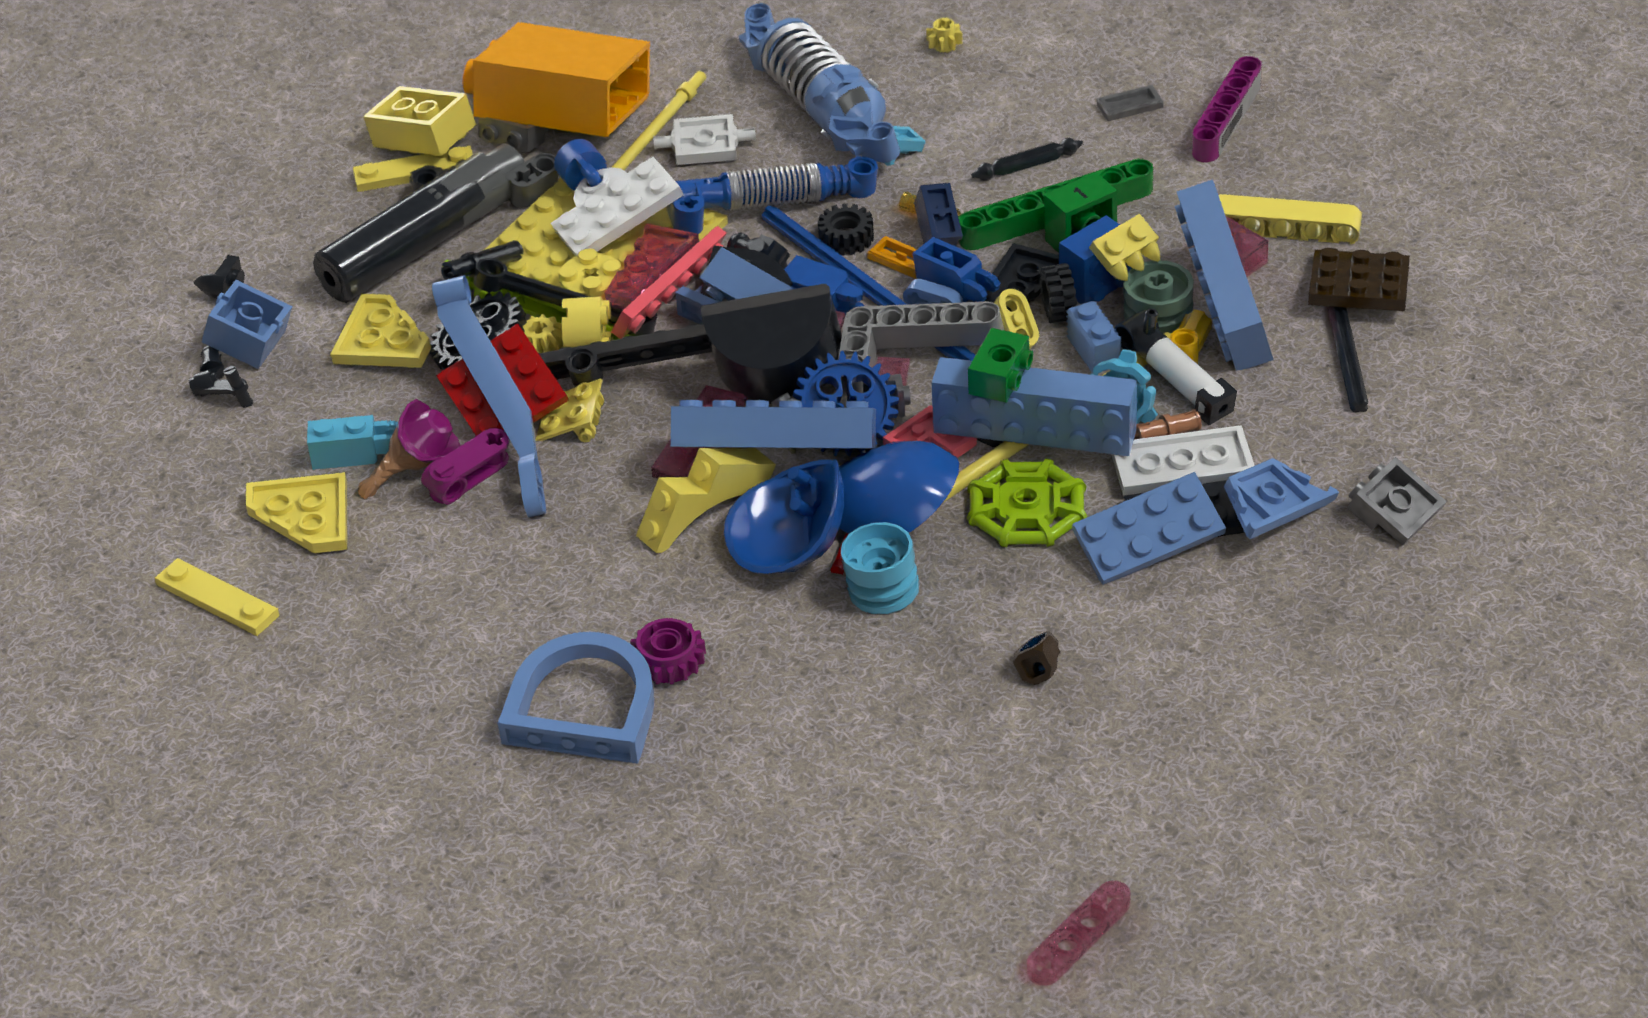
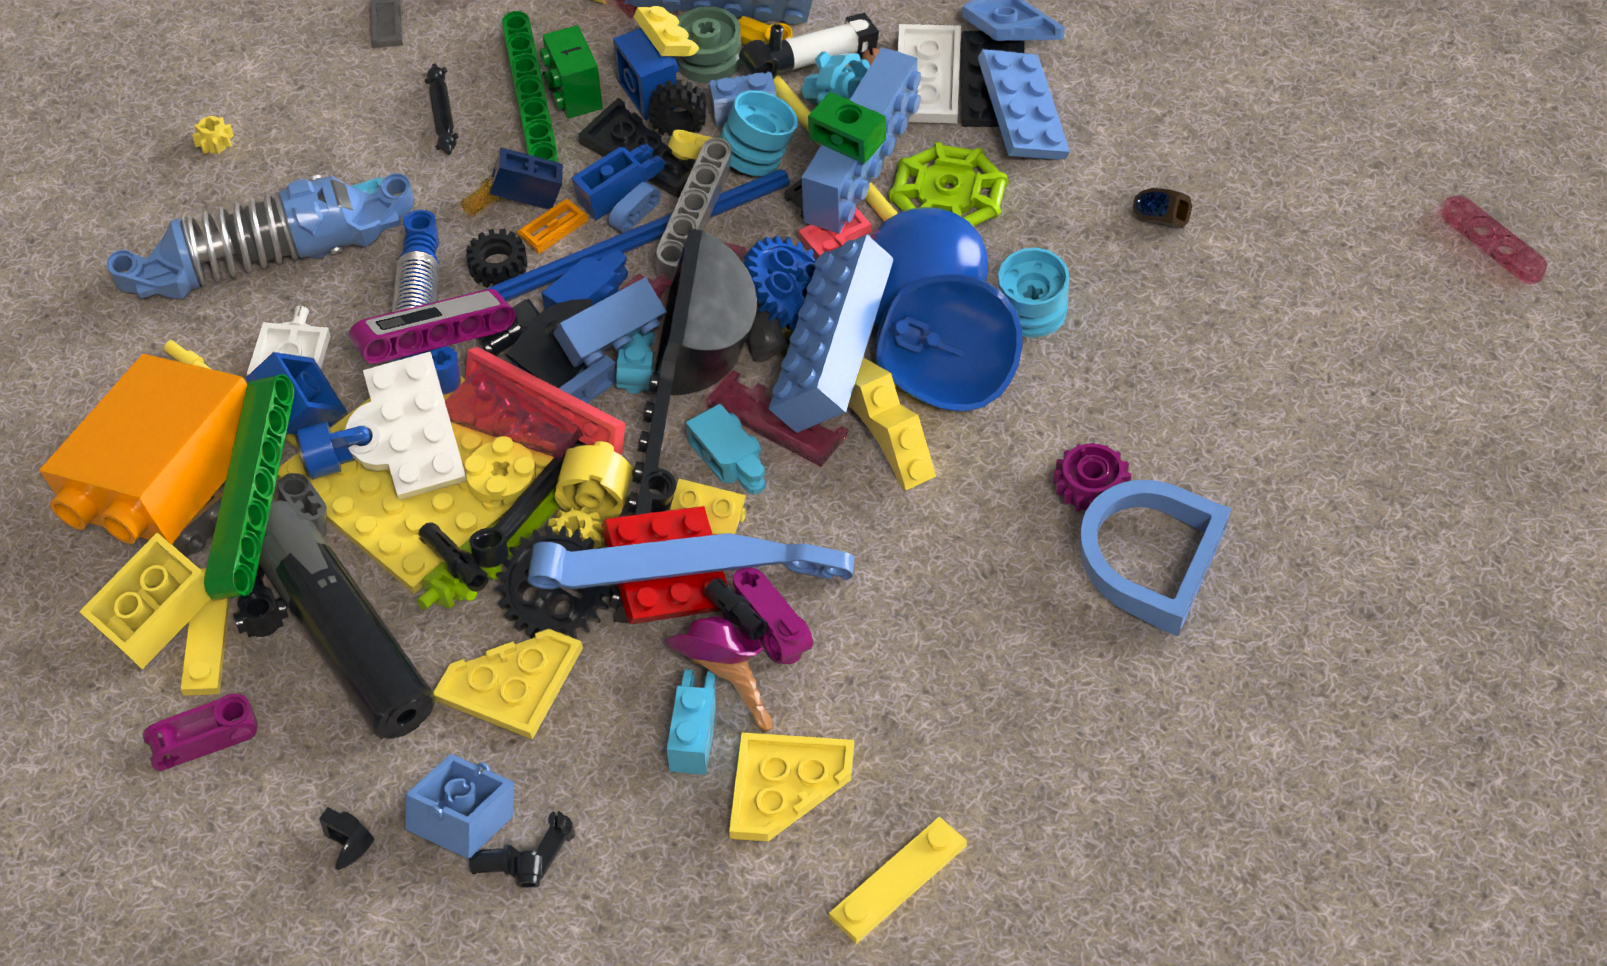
camera: 80 degrees left, 10 degrees up
(314, 187) = (201, 731): none -> magenta piece
(457, 434) = (736, 609): none -> black pin
(507, 136) = (249, 488): none -> green beam
(636, 135) = (313, 394): none -> blue brick
(649, 409) = (727, 448): none -> medium azure hinge
(715, 185) = (431, 326): none -> magenta beam
(1047, 330) = (758, 132): none -> medium azure wheel

